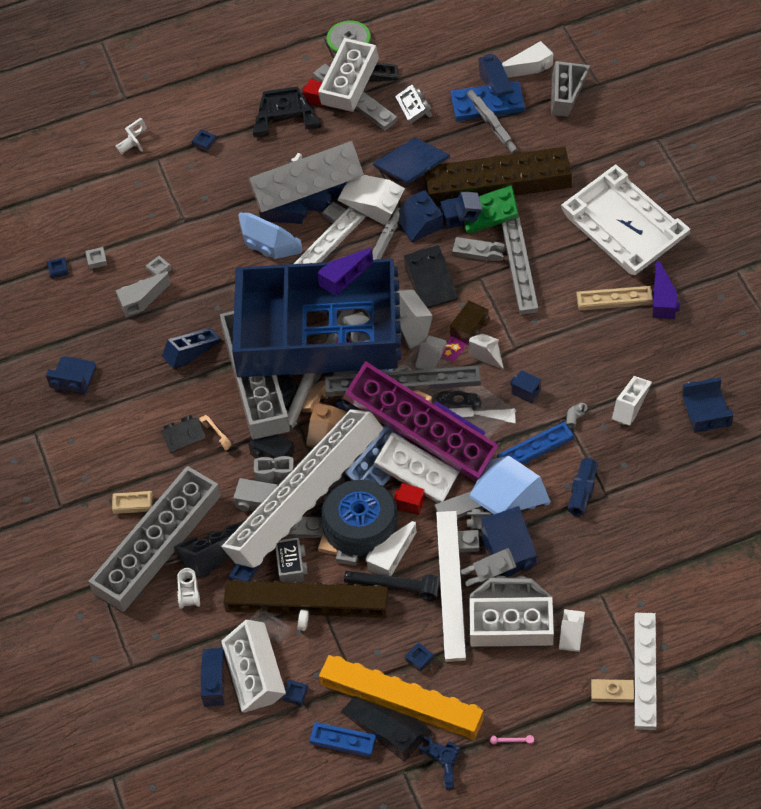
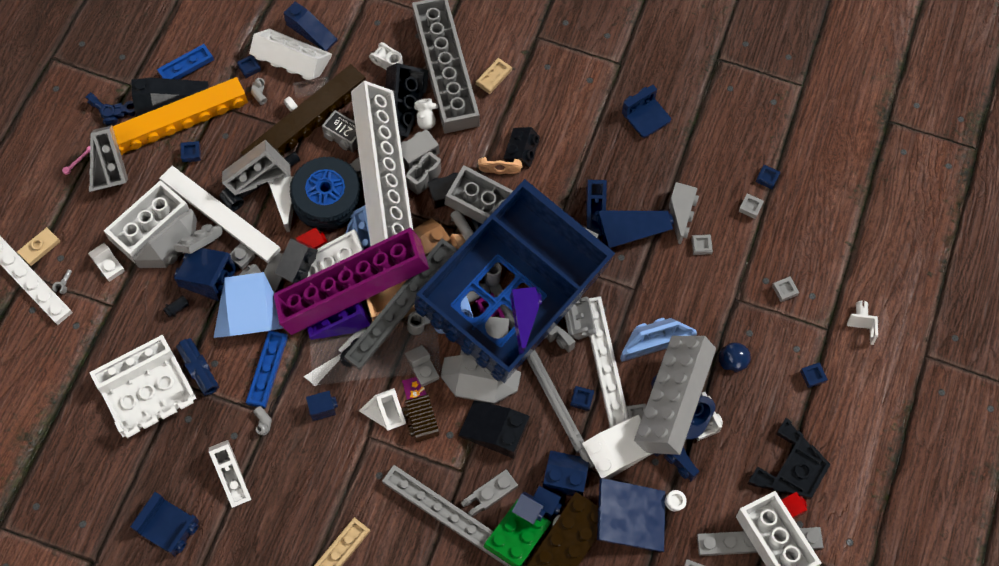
camera: 125 degrees right, 10 degrees up
(149, 195) = (785, 289): none -> light grey plate
(187, 310) = (628, 226): none -> dark blue slope
(216, 515) = (425, 115): none -> white animal
(233, 190) = (734, 357): none -> dark blue hair
(314, 662) = (257, 91): none -> light grey arm
(353, 247) = (582, 398): none -> dark blue tile
(374, 152) = (675, 500): none -> white tile
(393, 574) = (255, 168): none -> light grey wedge
(437, 482) = (296, 261): none -> black brick
(496, 694) = (105, 160): none -> light grey wedge
(554, 544) = (176, 306): none -> black pin
(623, 642) = (56, 285): none -> light grey hand
(637, 494) = (143, 386): none -> white slope

